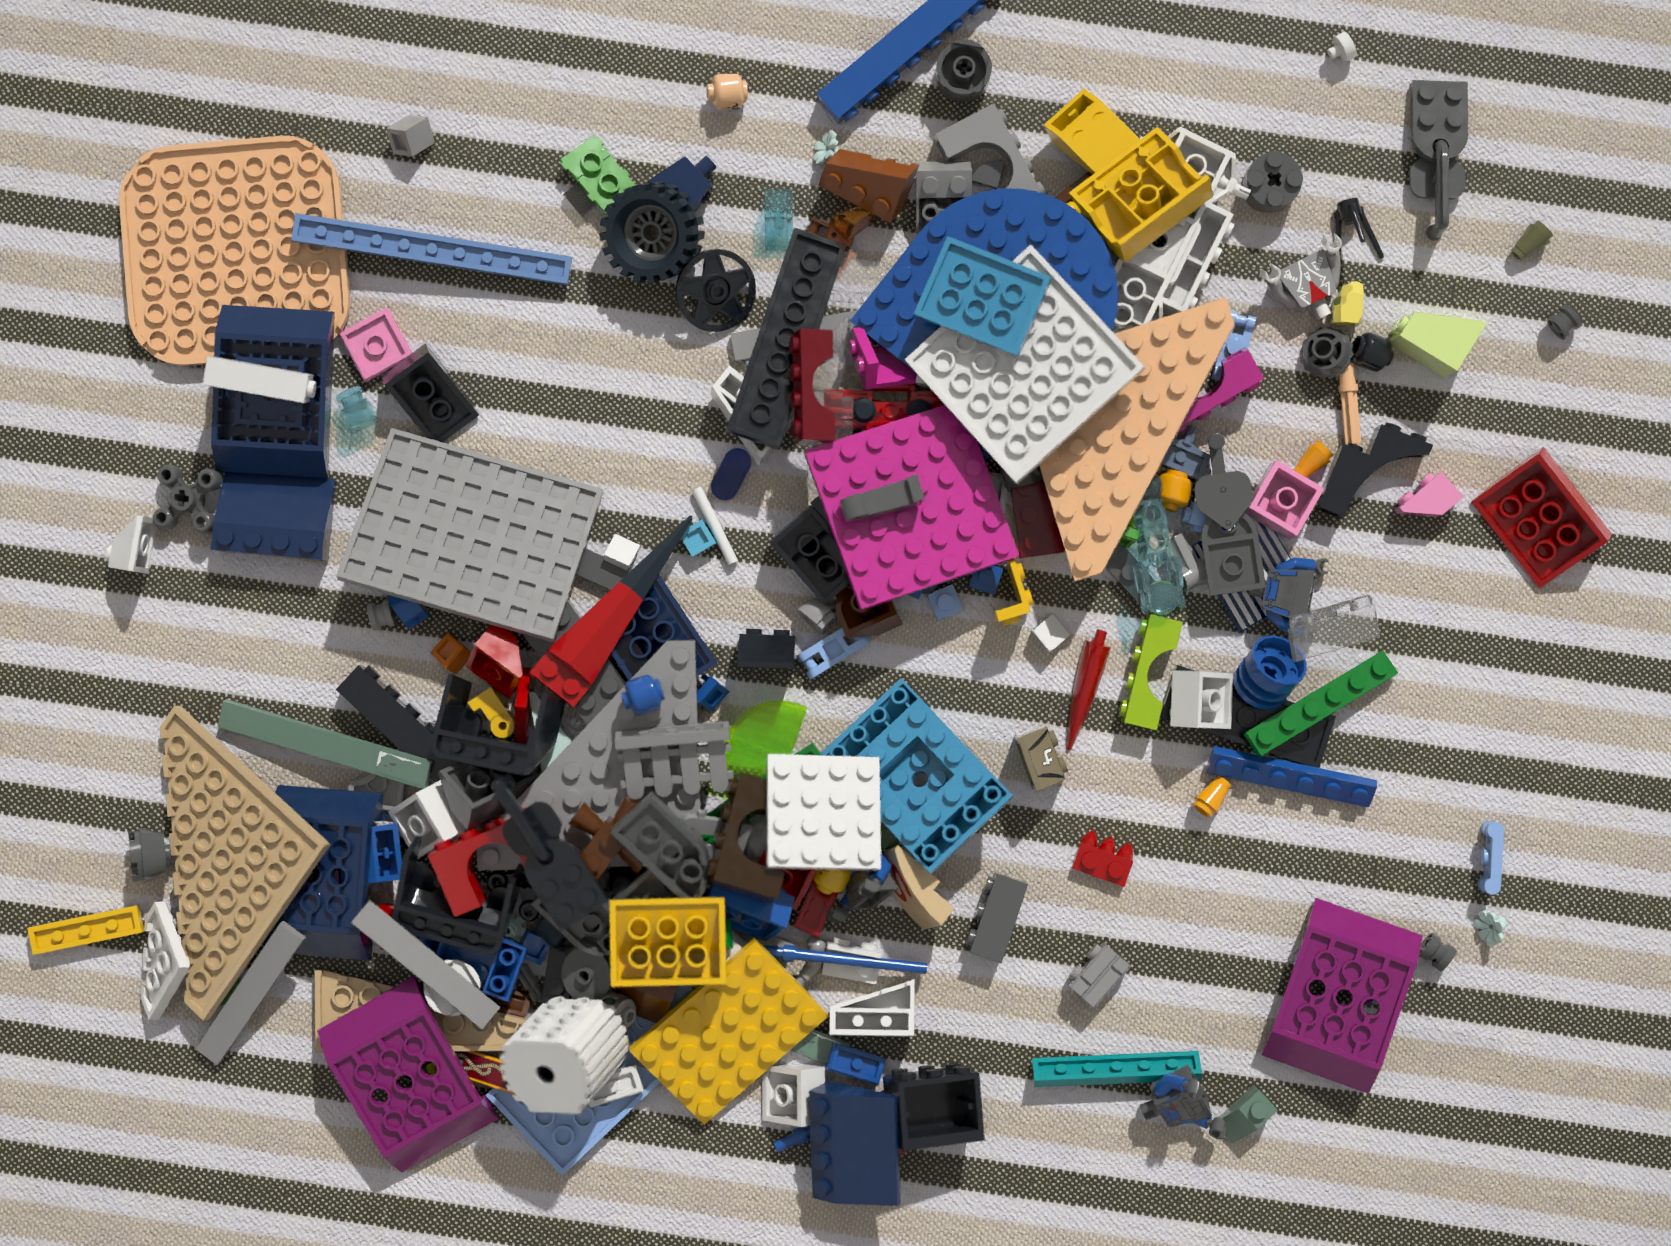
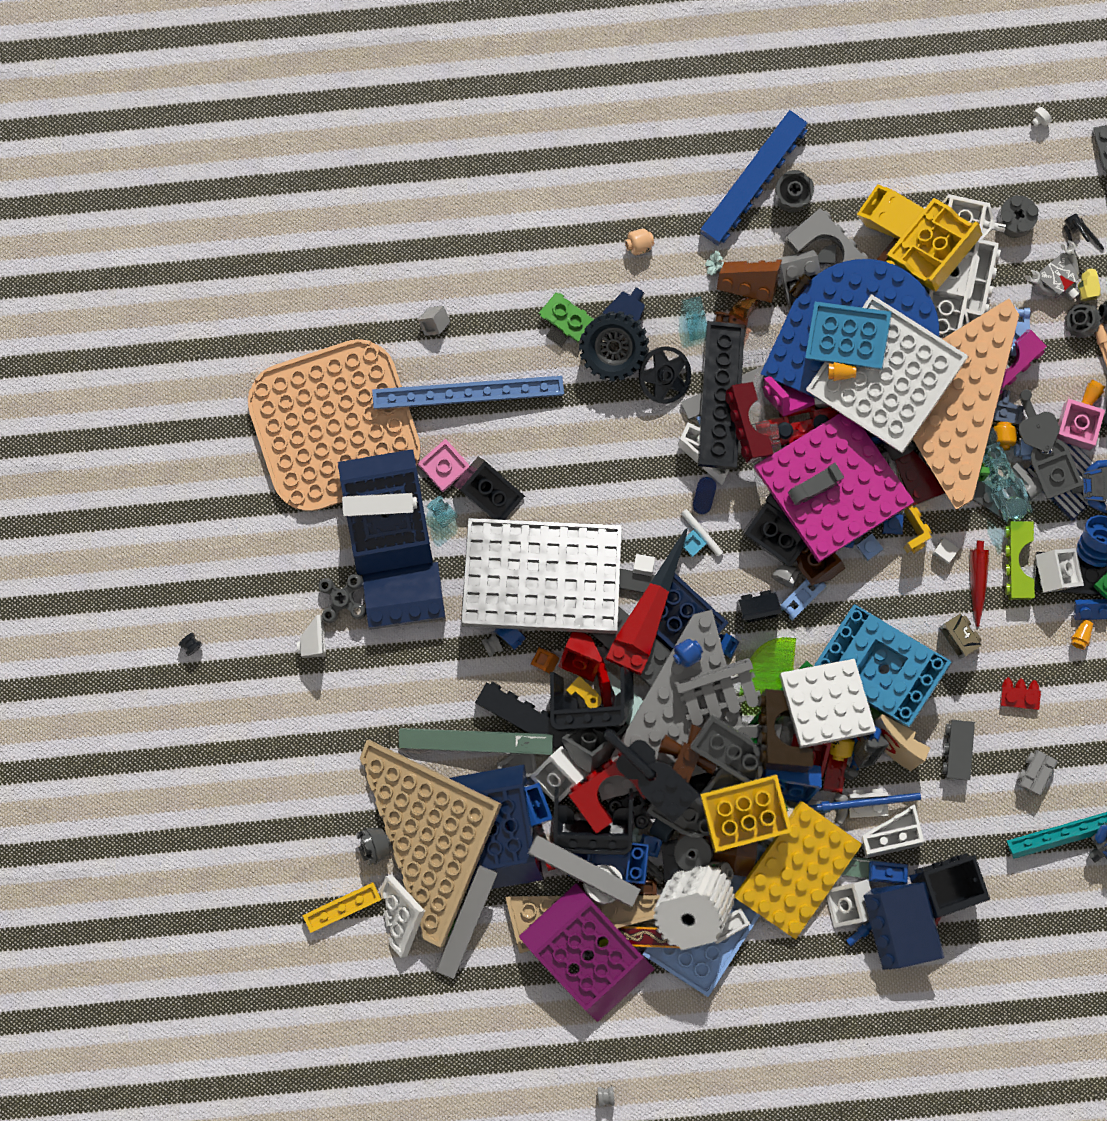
camera: 15 degrees left, 5 degrees down
(937, 208) = (803, 282): none -> dark brown pin
(959, 346) = (841, 371): none -> light orange cone

